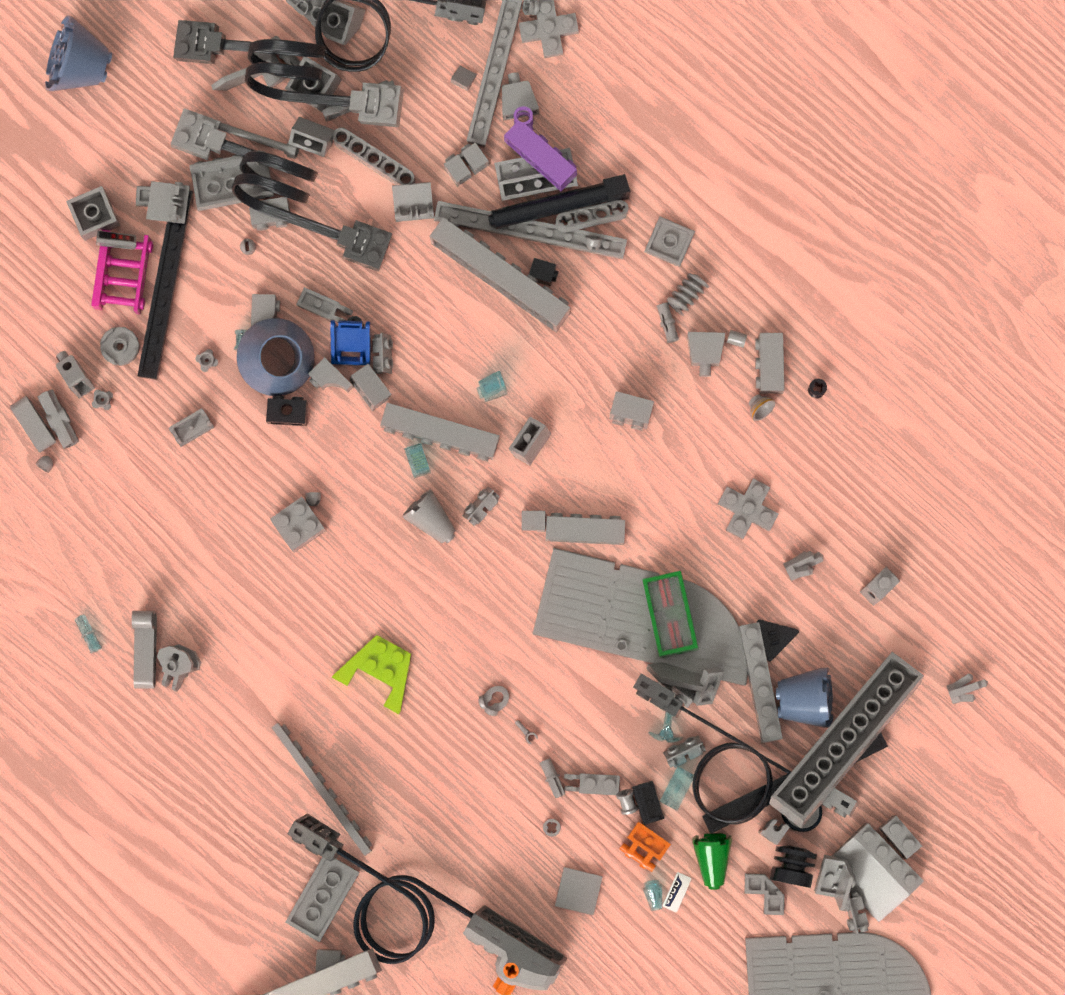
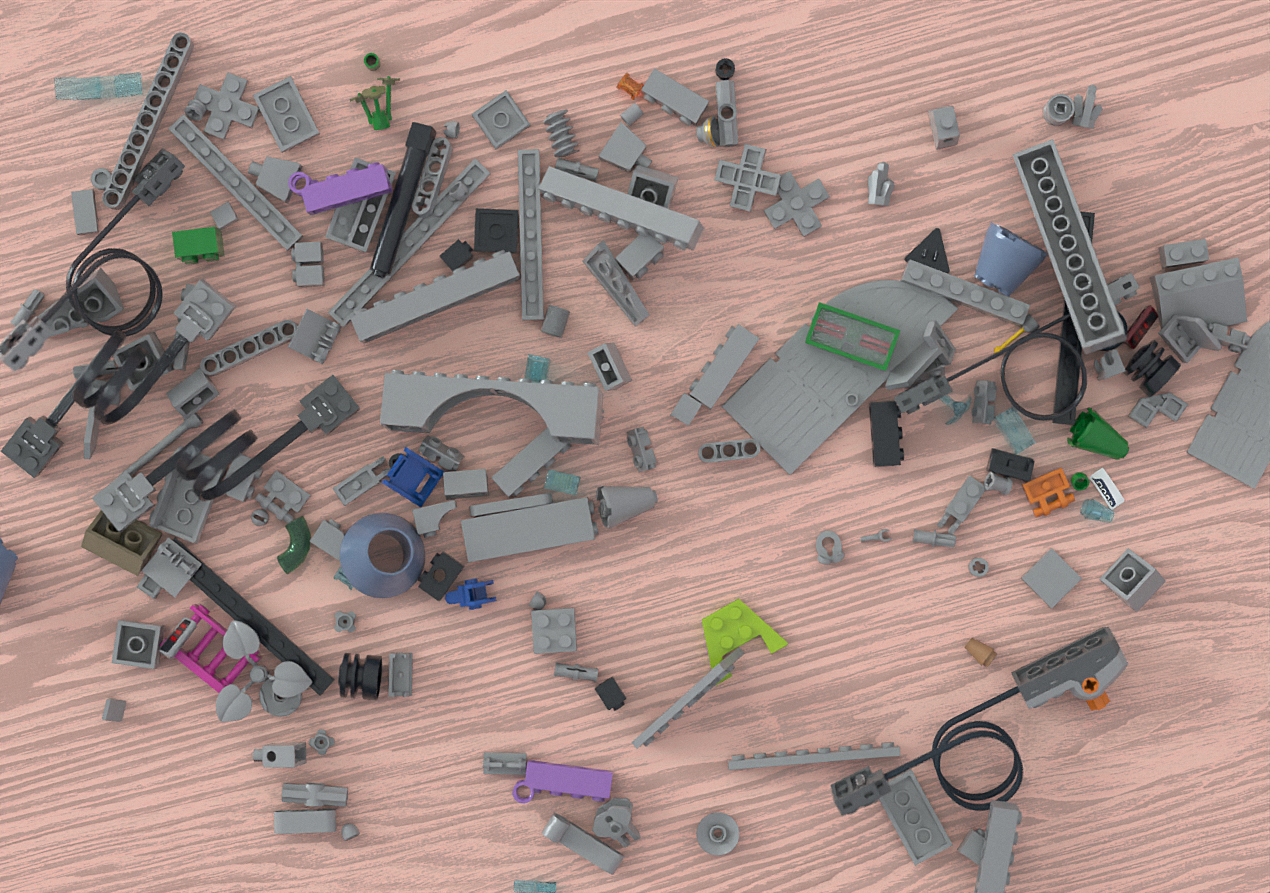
camera: 60 degrees left, 5 degrees up
(31, 226) = (114, 710): none -> light grey slope
(134, 342) = (289, 677): none -> light grey plant
(160, 159) = (126, 549): none -> dark tan slope
(169, 393) = (360, 676): none -> black wheel
(170, 550) = (504, 763): none -> light grey hinge
(187, 605) = (565, 779): none -> medium lavender hinge
(206, 754) = (722, 844): none -> light grey dish
(242, 289) = (298, 546): none -> clear green cylinder
(275, 562) = (576, 672): none -> light grey pin
(275, 599) = (611, 694): none -> black brick
(280, 254) = (286, 491): none -> light grey plate
(287, 443) = (470, 594): none -> blue hinge
(313, 662) = (689, 698): none -> light grey wing
(364, 457) = (529, 529): none -> light grey brick
(375, 431) = (511, 504): none -> light grey beam
(412, 312) = (419, 402): none -> light grey arch
(428, 70) = (198, 244): none -> green brick
(485, 871) = (981, 652): none -> medium nougat cone
(515, 567) = (738, 446): none -> light grey beam
(539, 378) = (555, 321): none -> light grey piece
(570, 76) = (286, 114): none -> light grey plate
(581, 290) = (496, 230): none -> black plate
(594, 318) = (530, 234): none -> light grey plate
(600, 399) = (612, 278): none -> light grey wing
(610, 689) = (885, 434): none -> black brick
(611, 147) = (379, 119): none -> green plant
(616, 956) = (1132, 580): none -> light grey slope
(638, 209) = (453, 129): none -> light grey hinge
(652, 111) = (374, 67): none -> green hinge
(657, 373) = (621, 208): none -> light grey brick
(669, 866) = (1078, 482): none -> green hinge
(683, 389) = (653, 186): none -> light grey brick
(744, 458) = (748, 177): none -> light grey plate
(757, 323) = (630, 86): none -> clear orange bush
(767, 748) = (1029, 325): none -> hinge
(793, 404) = (726, 100): none -> light grey piece
(820, 839) = (1140, 326): none -> slope
(950, 667) = (1058, 110): none -> light grey wheel

